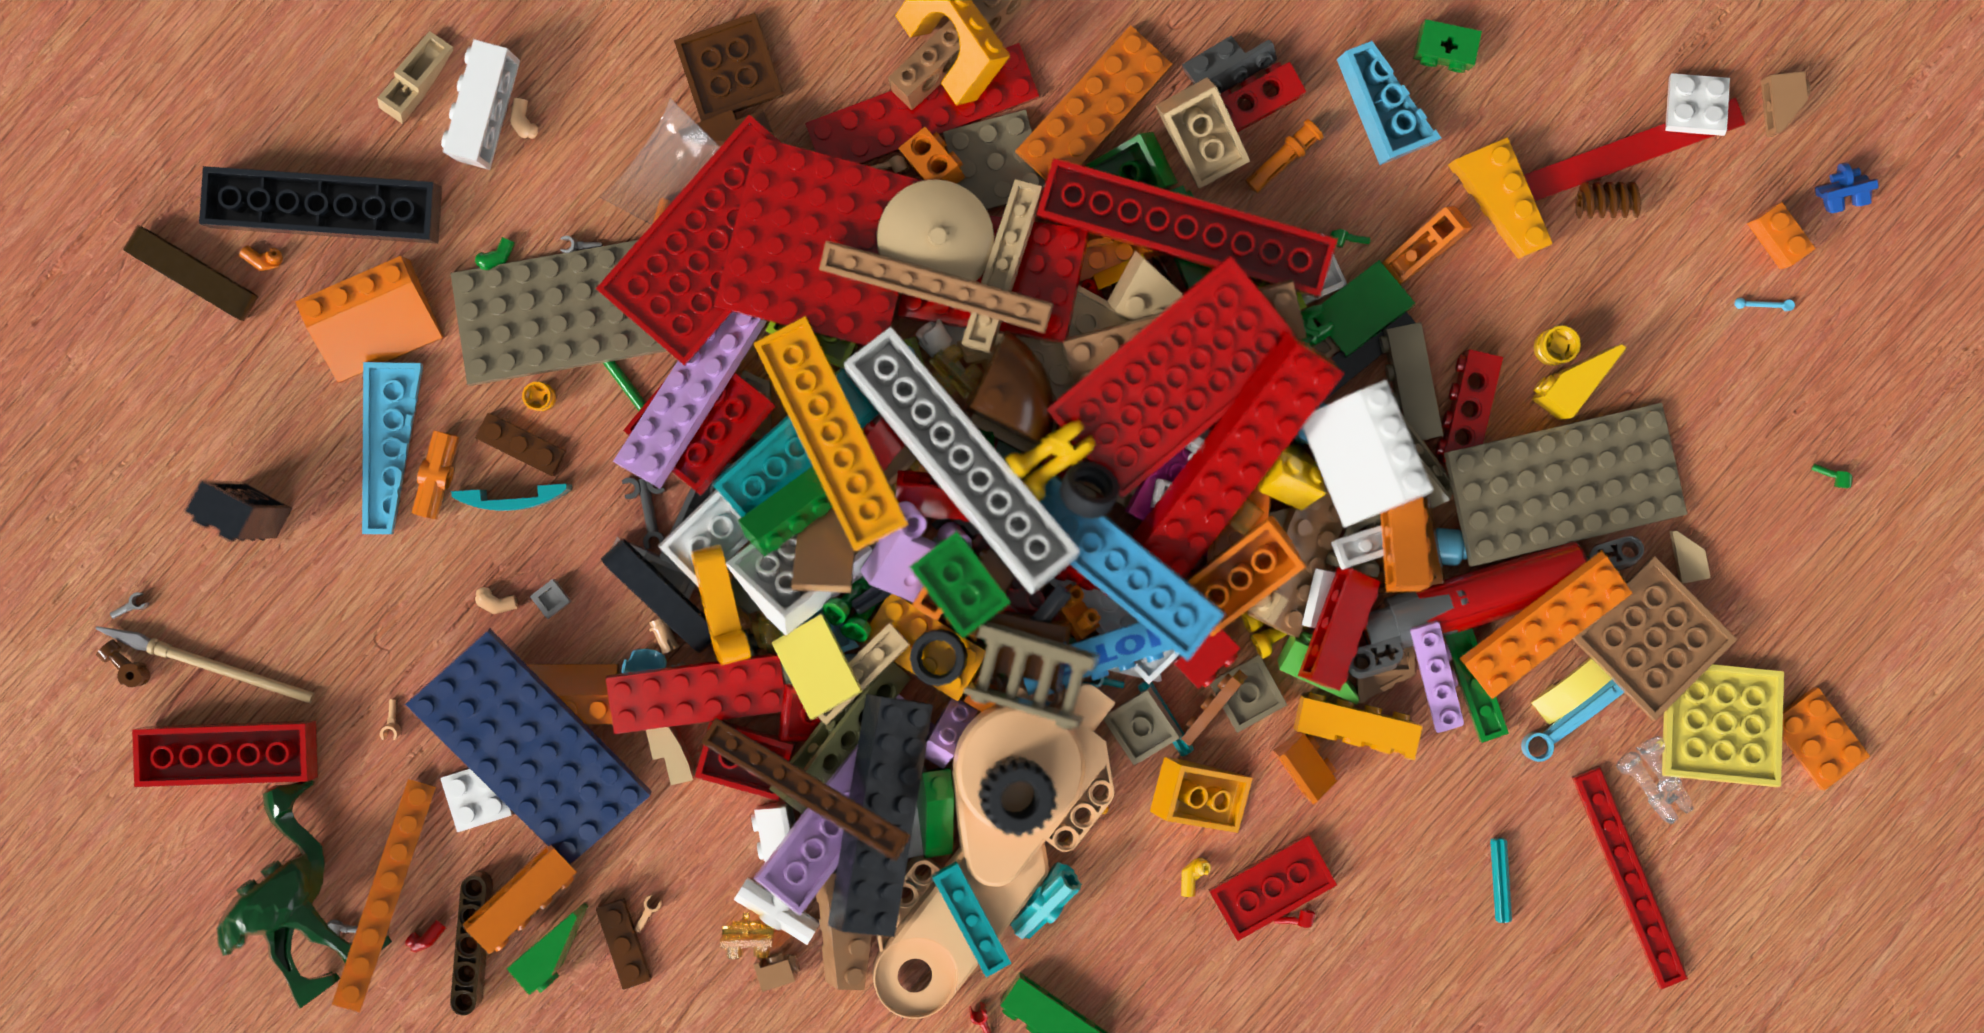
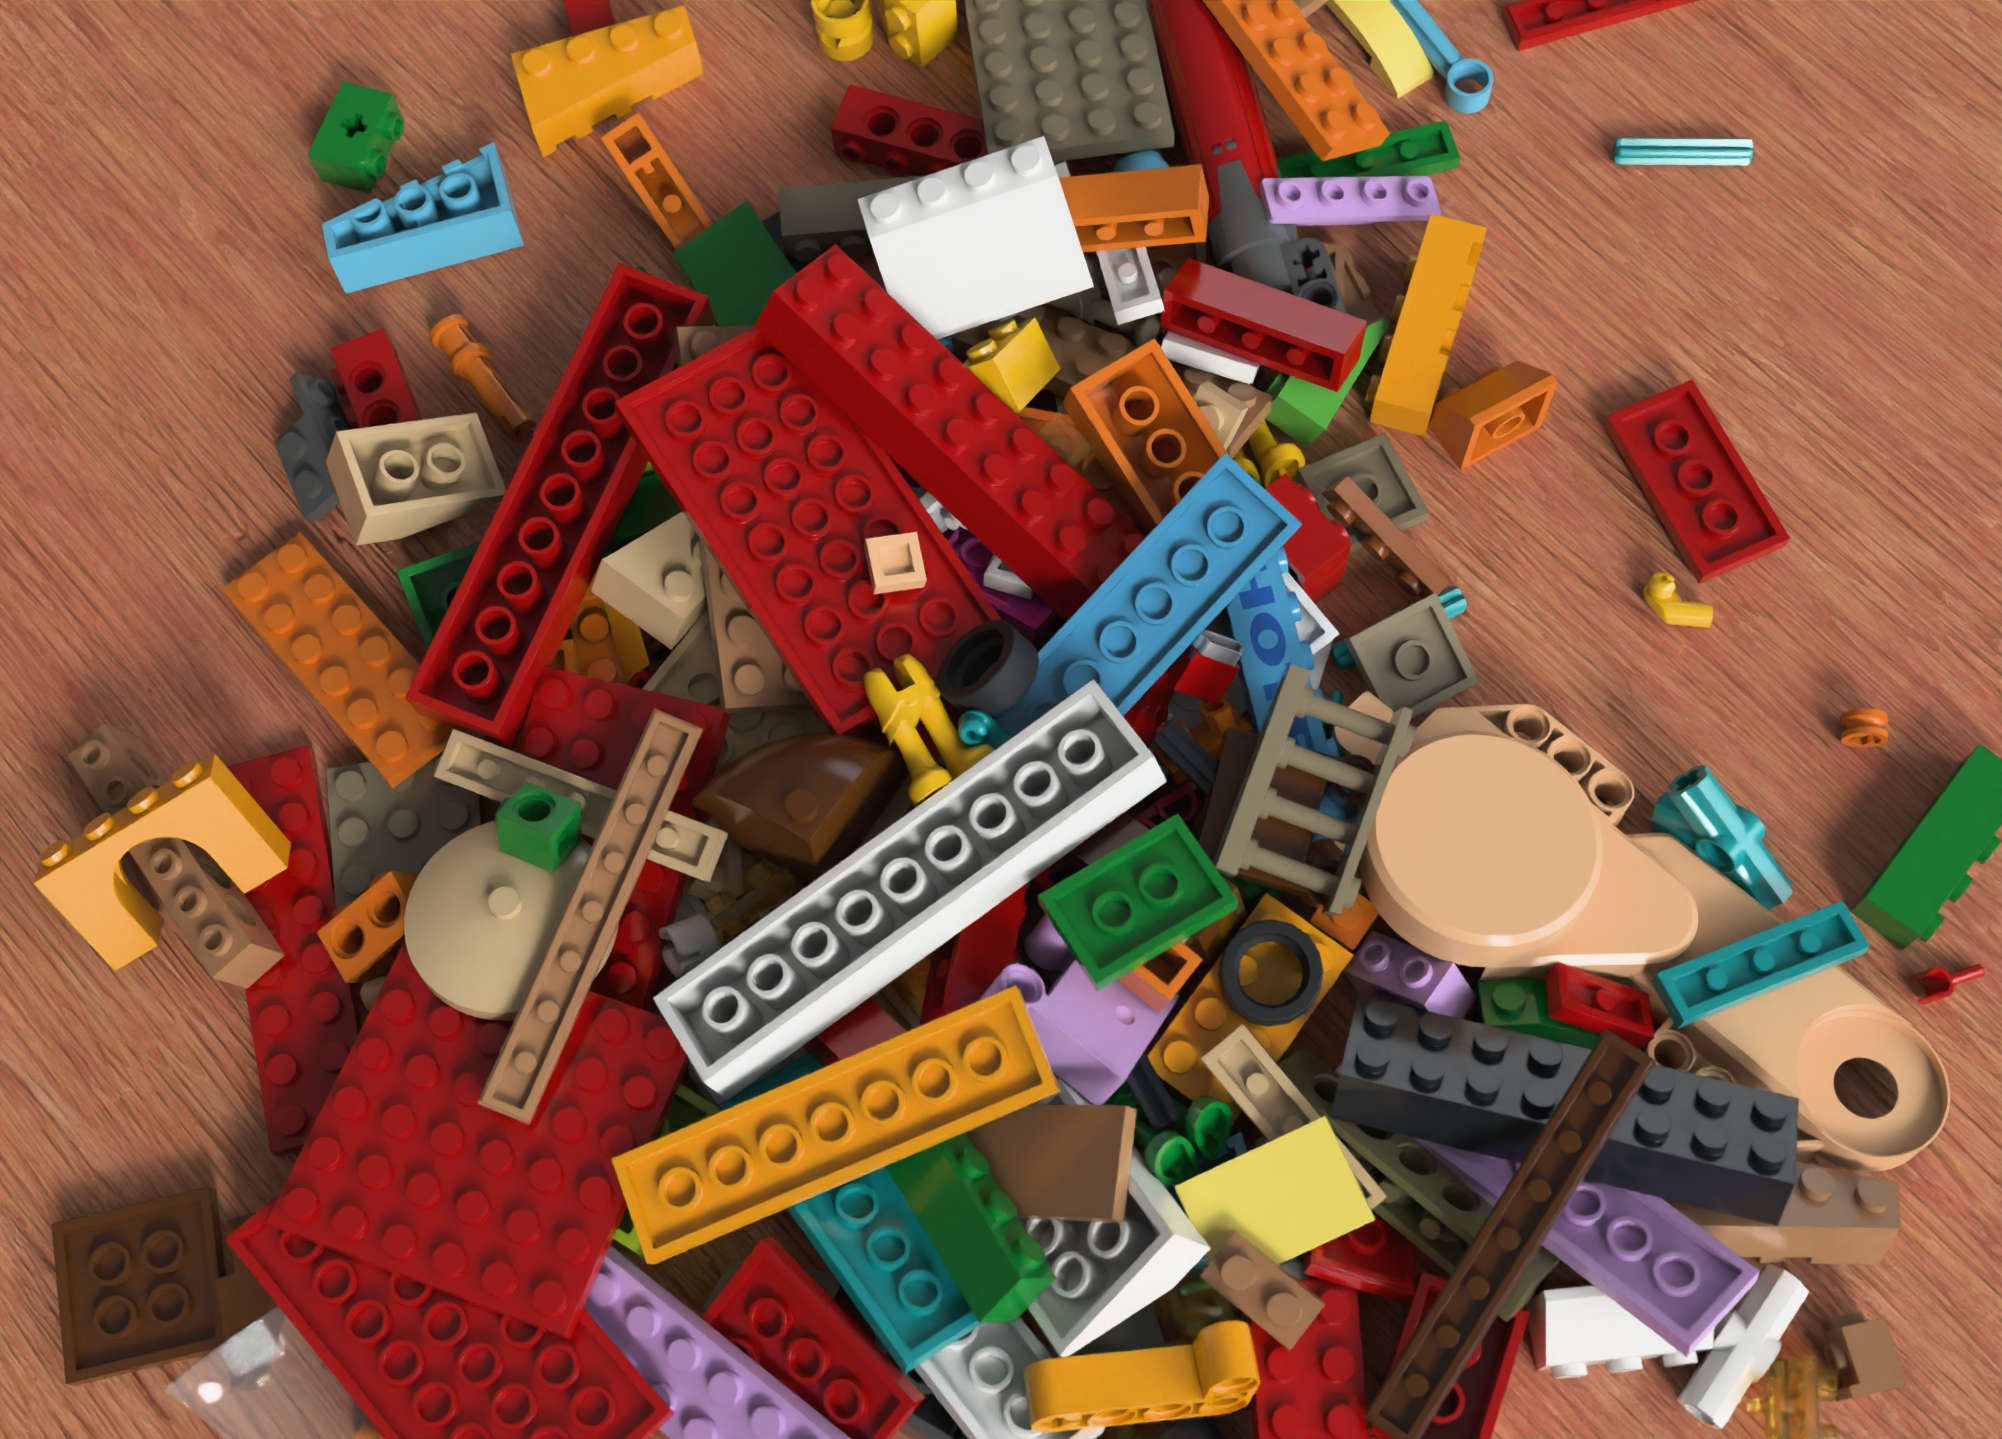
camera: 75 degrees left, 20 degrees down
(771, 663) = (1263, 1290): none -> medium nougat plate
(941, 833) = (1599, 1004): none -> red plate
(972, 251) = (539, 826): none -> green brick
(1028, 818) = (1549, 796): black tyre -> none
(1053, 488) = (979, 728): none -> teal arm
(1109, 612) = (1206, 667): none -> red piece
(1124, 980) = (1864, 728): none -> orange bush
(1149, 430) = (895, 563): none -> light nougat plate
(1200, 795) = (1534, 582): light orange slope -> none
(1305, 919) = (1750, 436): red hand -> none

